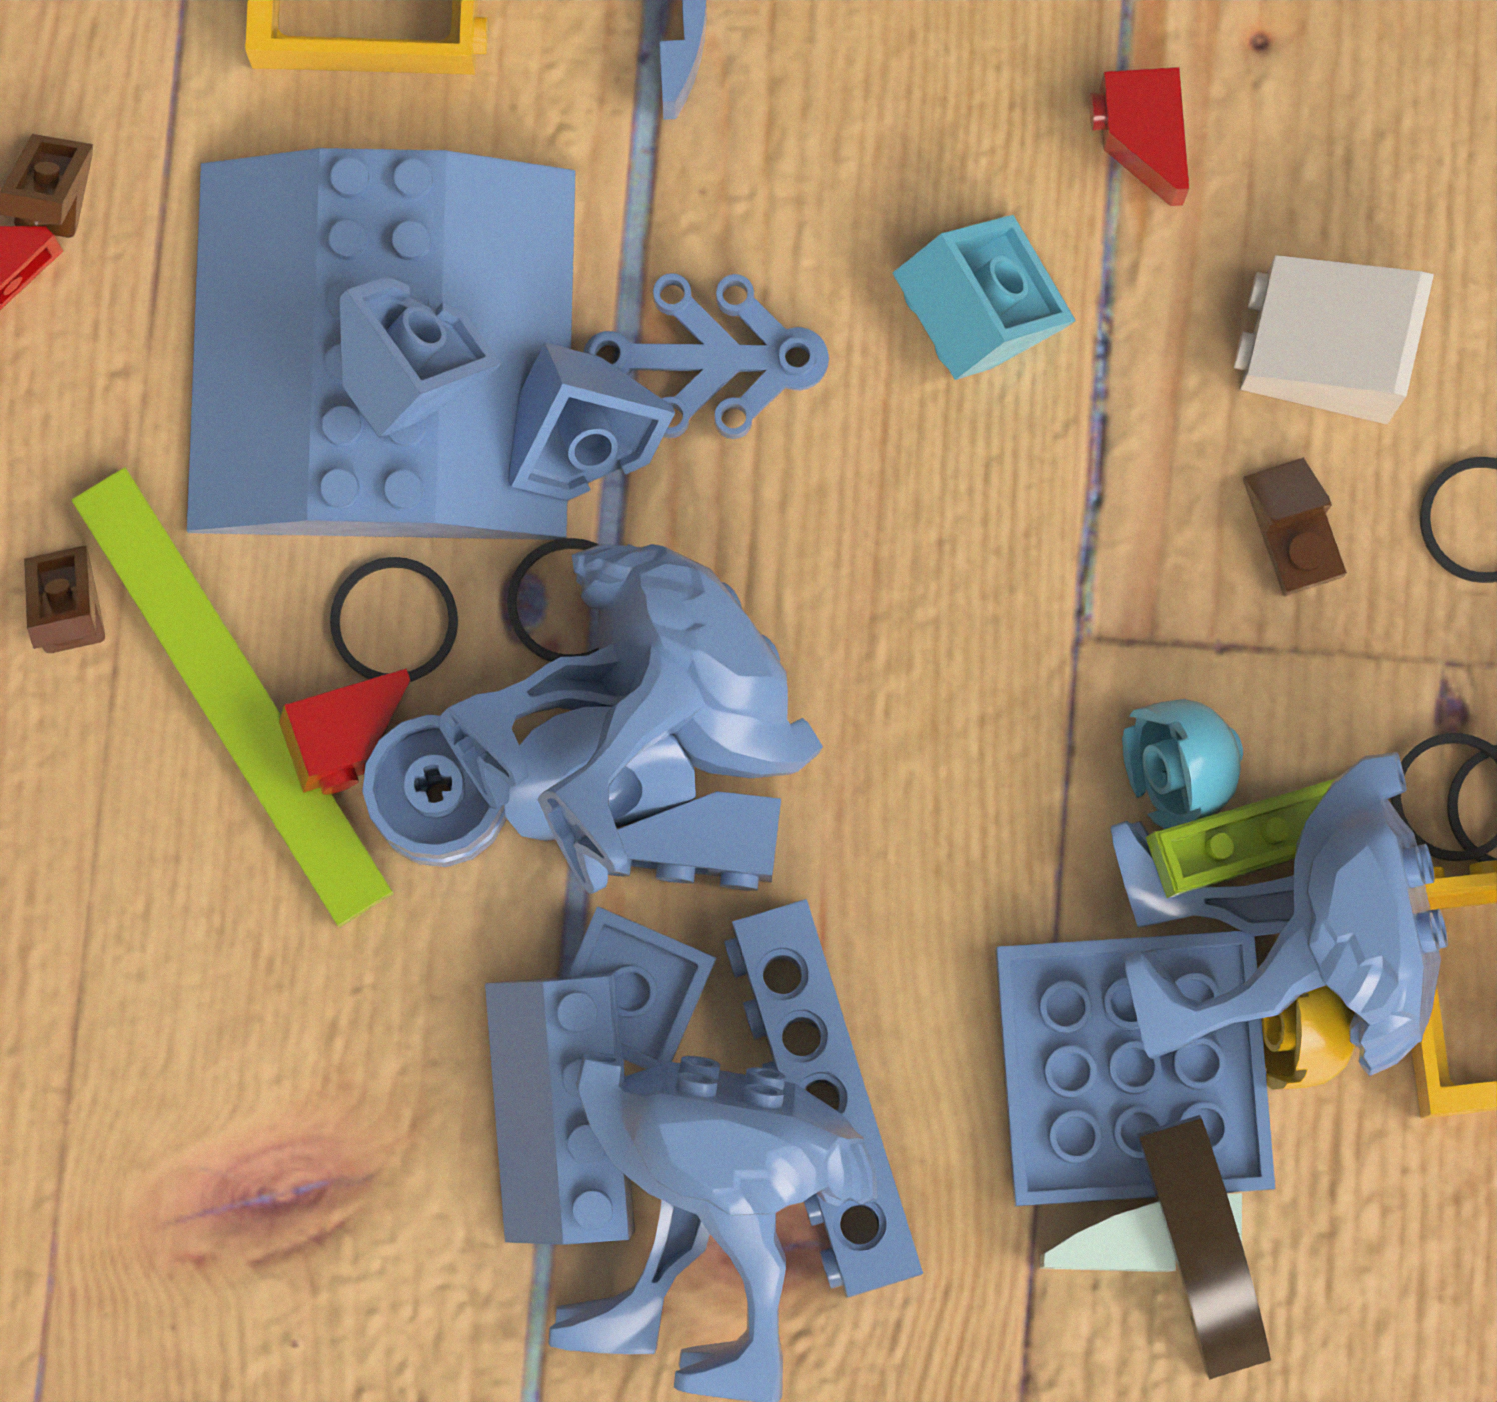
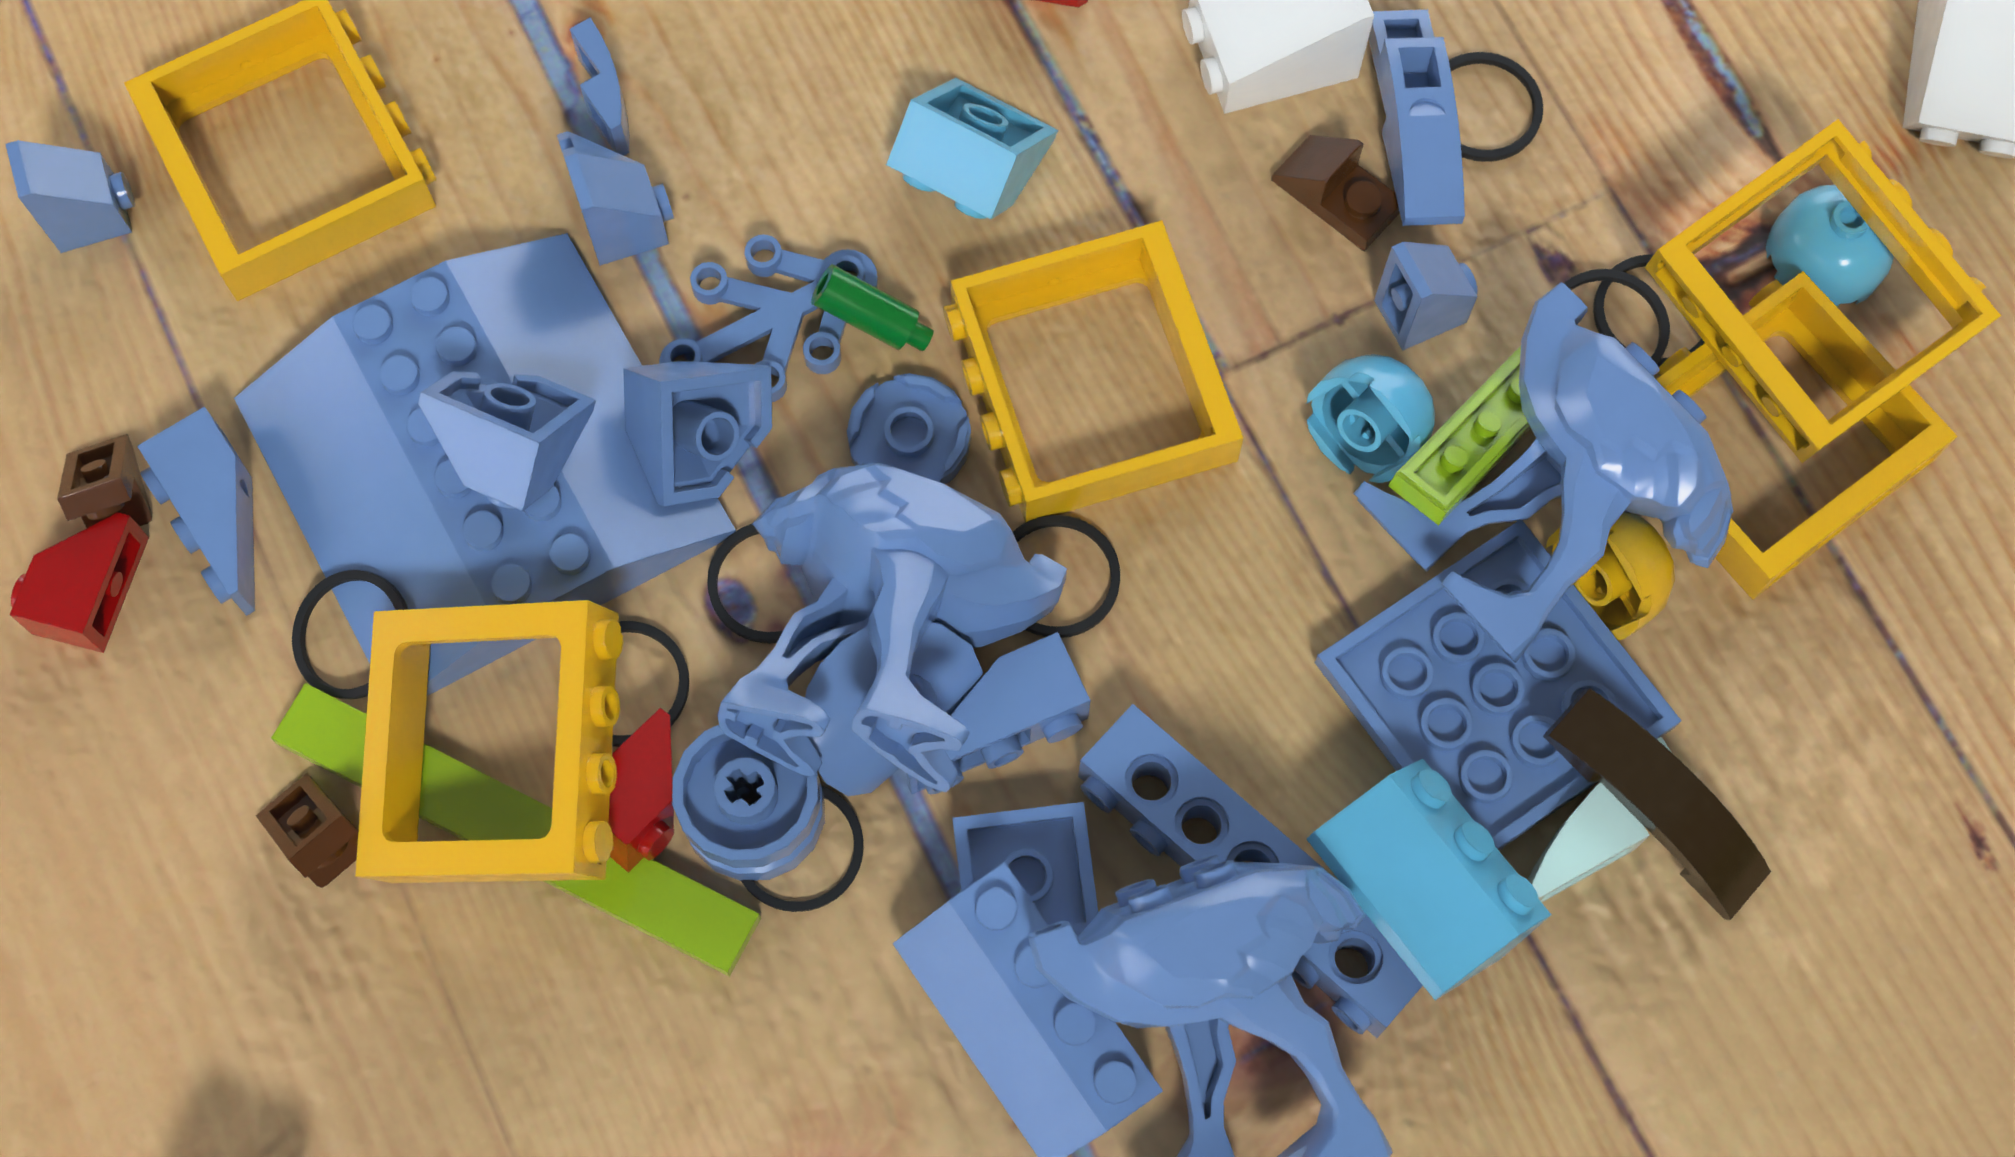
camera: 30 degrees left, 10 degrees down
(134, 247) = (214, 497): none -> medium blue slope
(140, 422) = (305, 611): none -> black piece
(309, 690) = (394, 746): none -> yellow piece
(469, 907) = (841, 887): none -> black piece
(630, 165) = (615, 199): none -> medium blue slope
(767, 536) = (911, 426): none -> medium blue tile
(796, 404) = (870, 310): none -> green cylinder
(879, 743) = (1108, 550): none -> black piece
(961, 1195) = (1429, 878): none -> medium azure slope
(982, 468) = (1064, 276): none -> yellow piece
(1305, 674) = (1424, 292): none -> medium blue slope
(1407, 499) = (1420, 117): none -> medium blue slope

